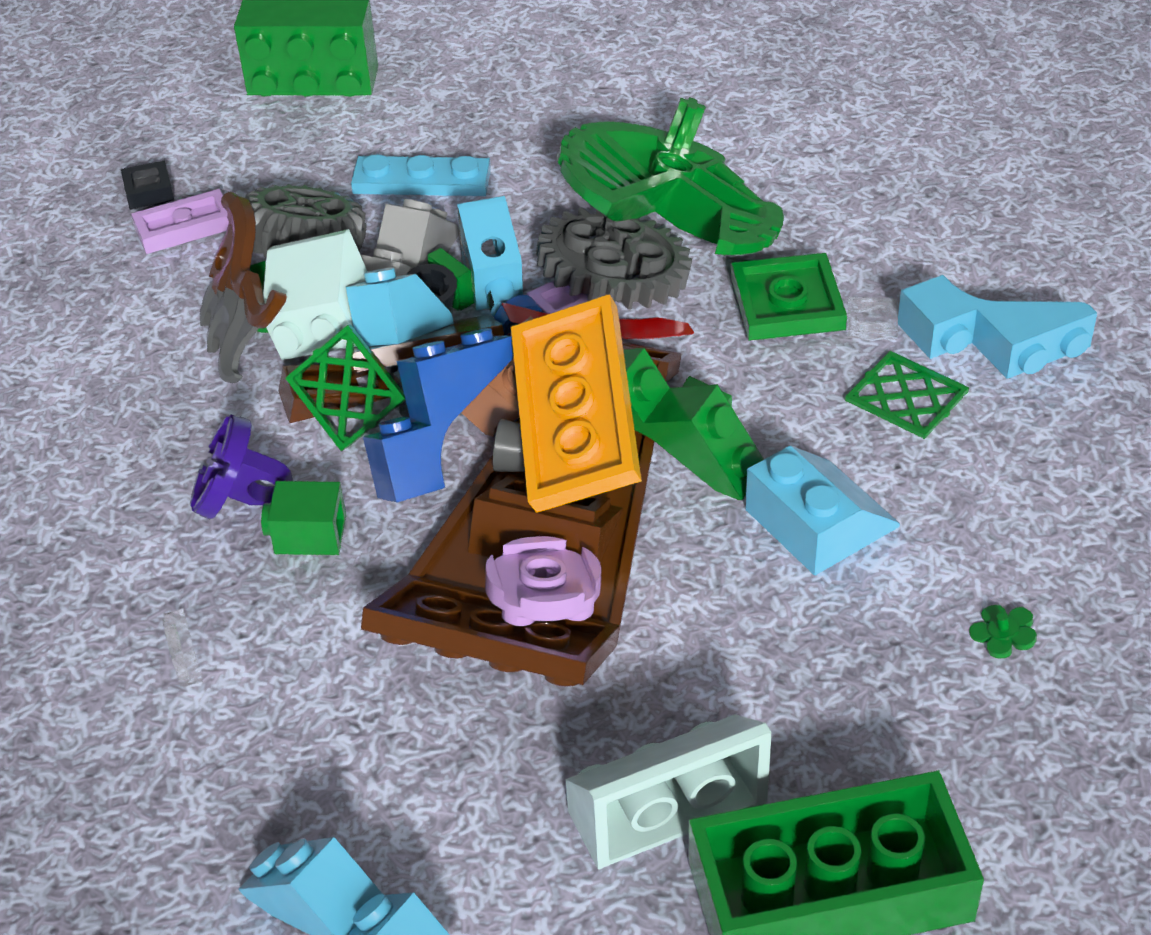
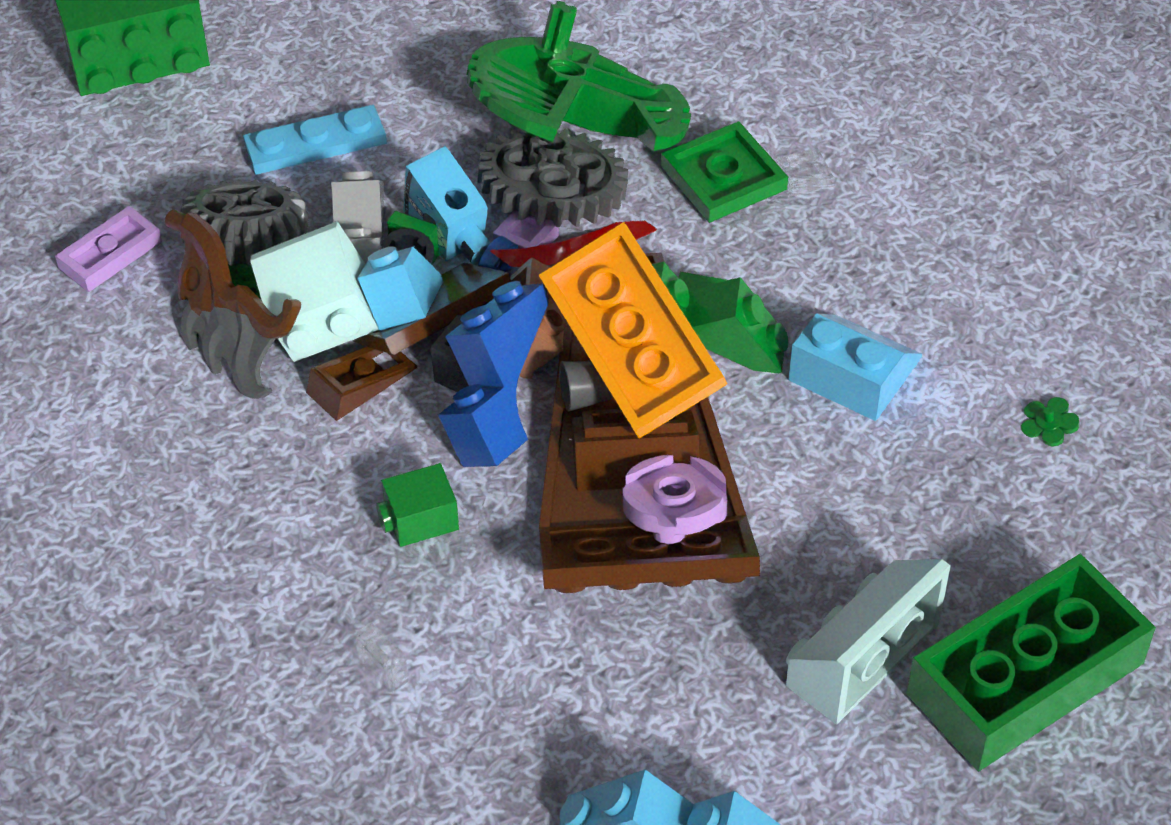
camera: 25 degrees left, 5 degrees up
(147, 185) = (46, 220): black plate -> none
(234, 471) = (326, 481): dark purple tile -> none
(317, 409) = (422, 396): green window -> none
(925, 373) = (866, 259): green window -> none
(1008, 333) = (930, 156): medium azure arch -> none

